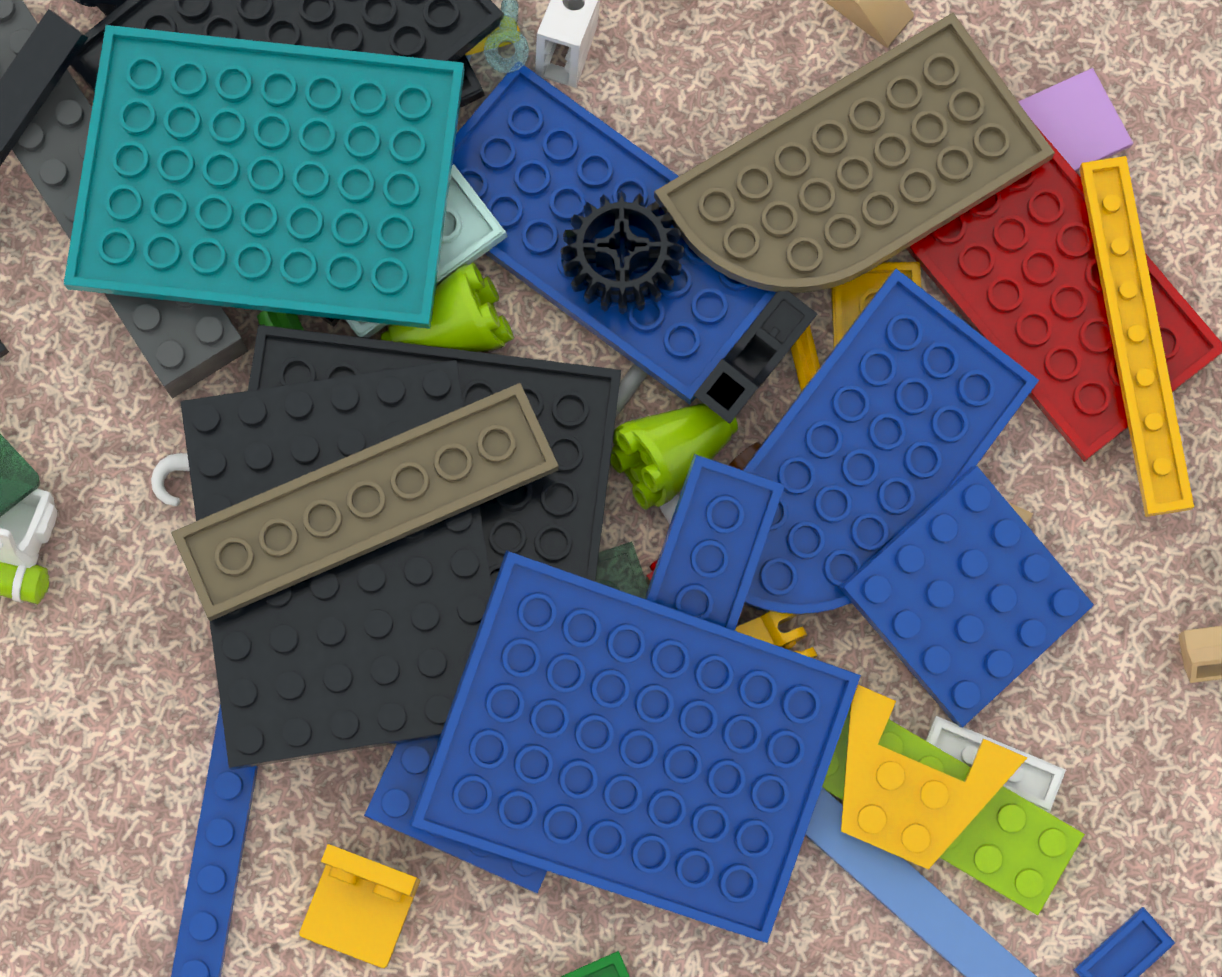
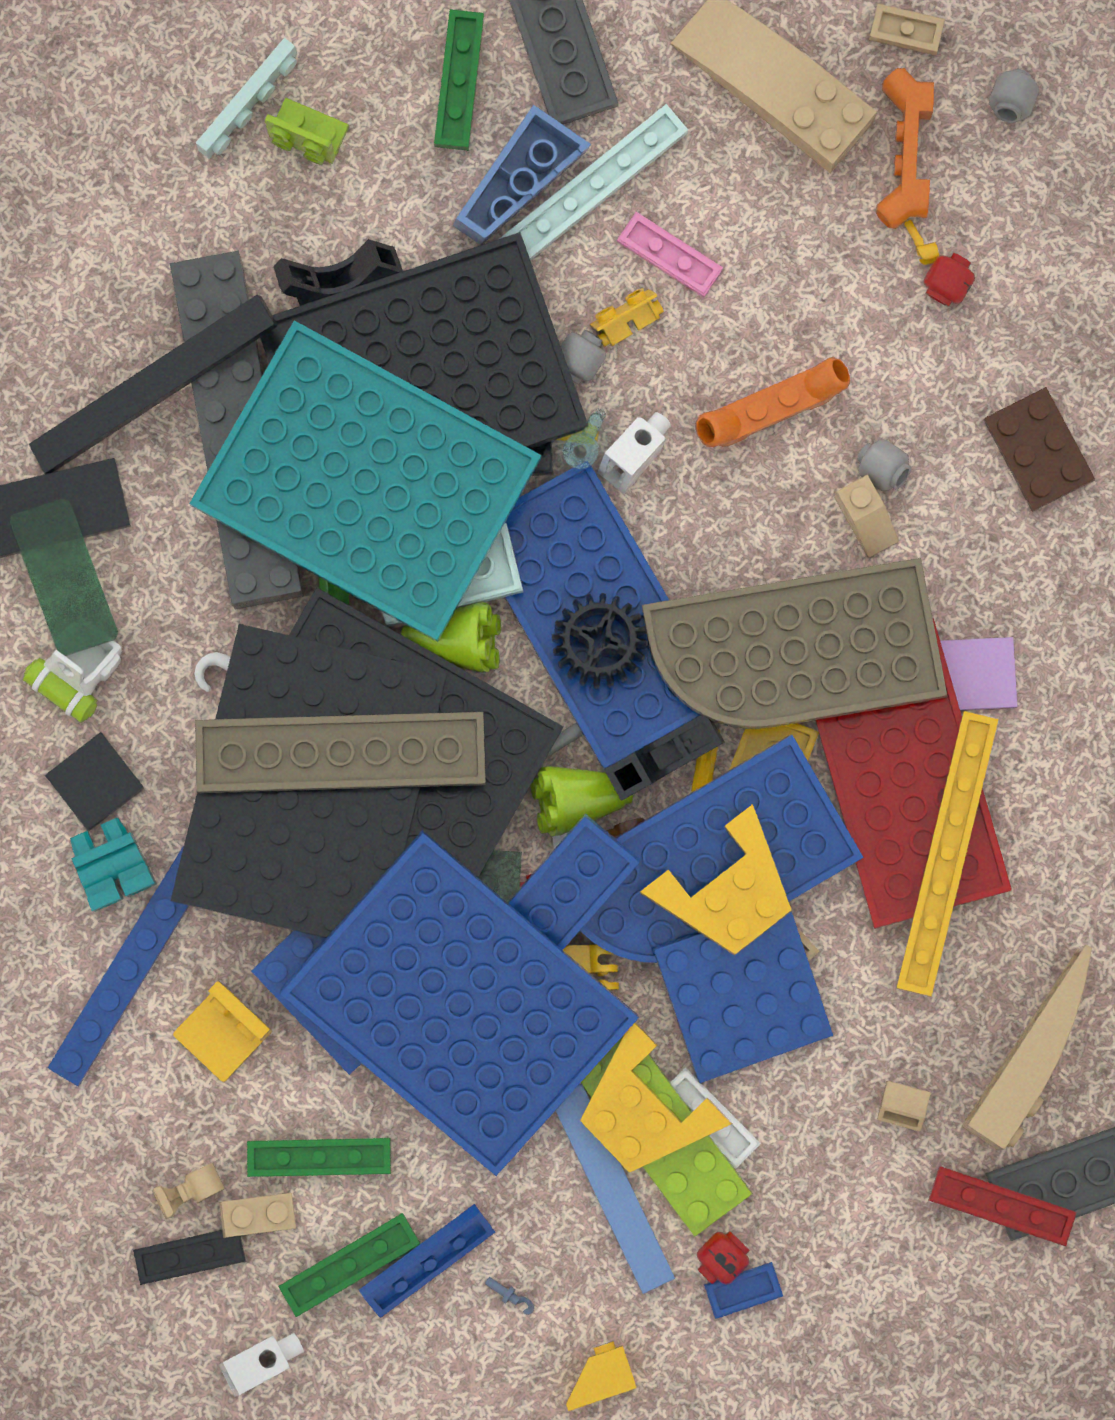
camera: 25 degrees right, 5 degrees up
(82, 668) = (94, 781): none -> black tile
(136, 756) = (114, 860): none -> teal hips
(918, 490) = (736, 903): none -> yellow wing
(1084, 926) = (722, 1258): none -> red head

